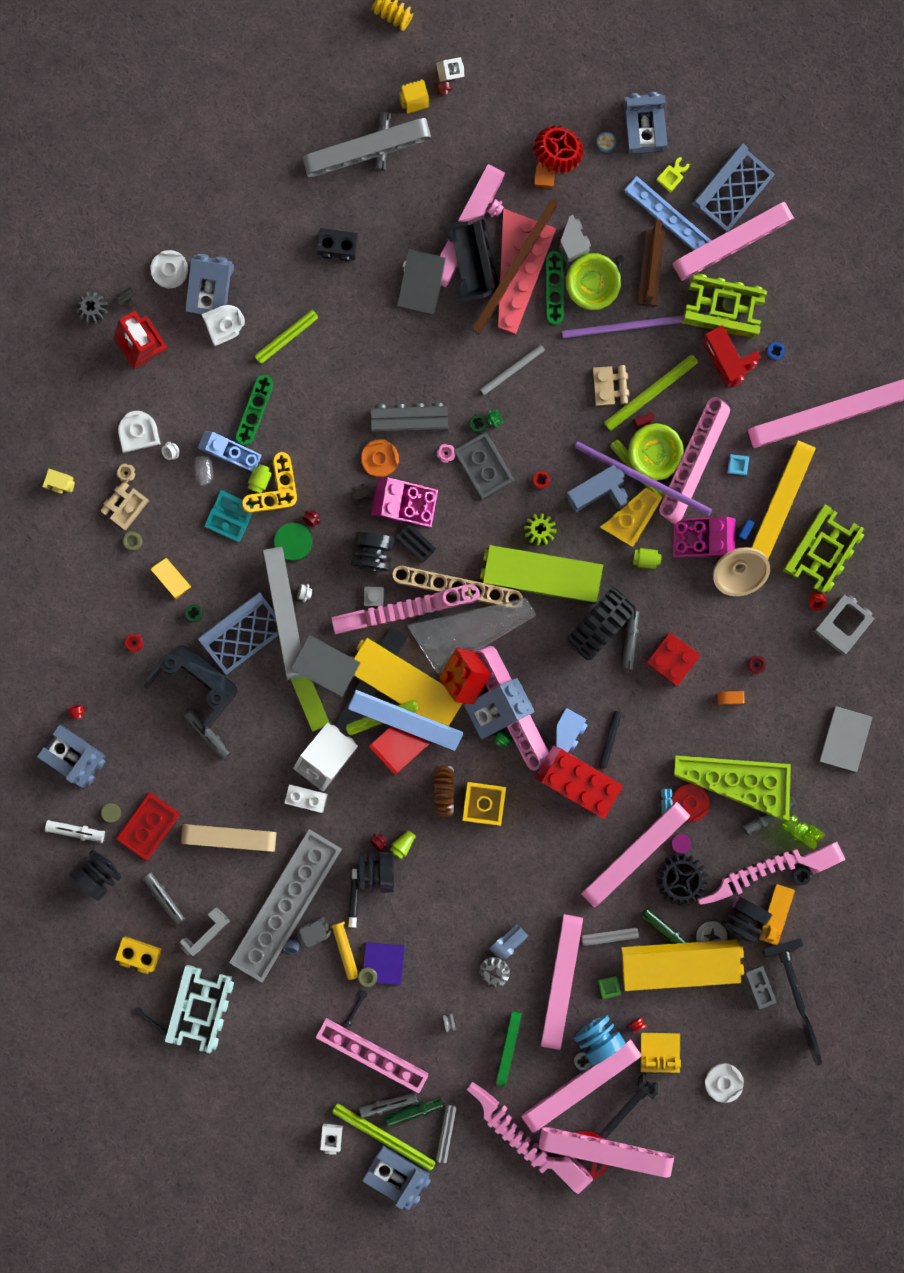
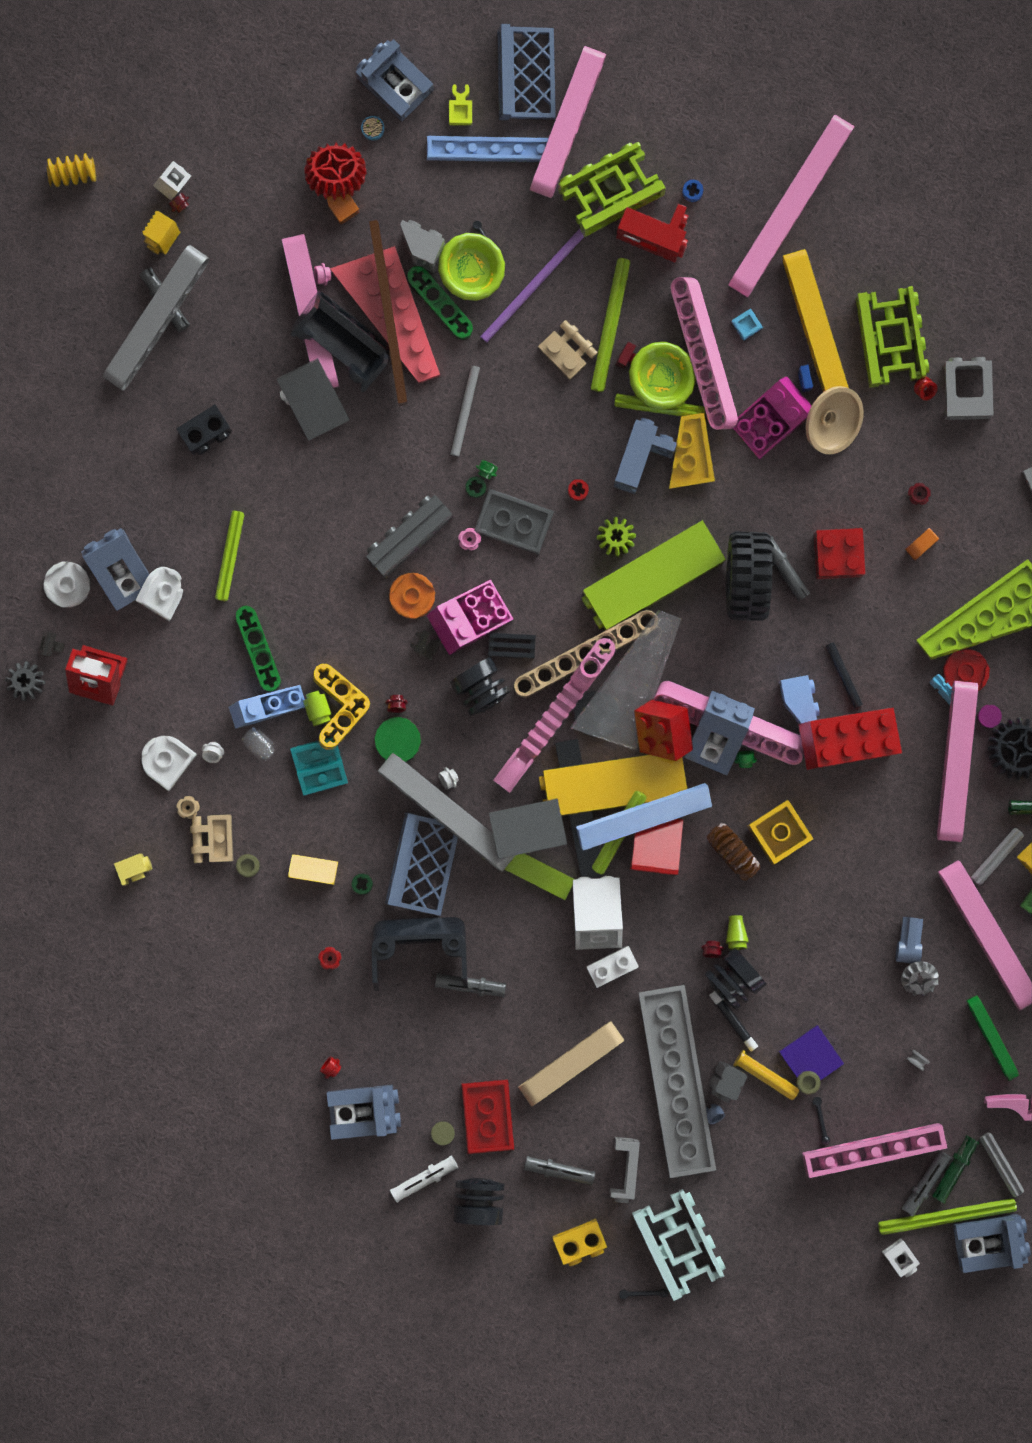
camera: 40 degrees left, 0 degrees up
(373, 596) = (515, 727): light grey plate -> none
(644, 479) = (673, 409): medium lavender piece -> none
(646, 558) = (736, 480): lime brick -> none
(651, 265) = (511, 207): reddish brown fence -> none

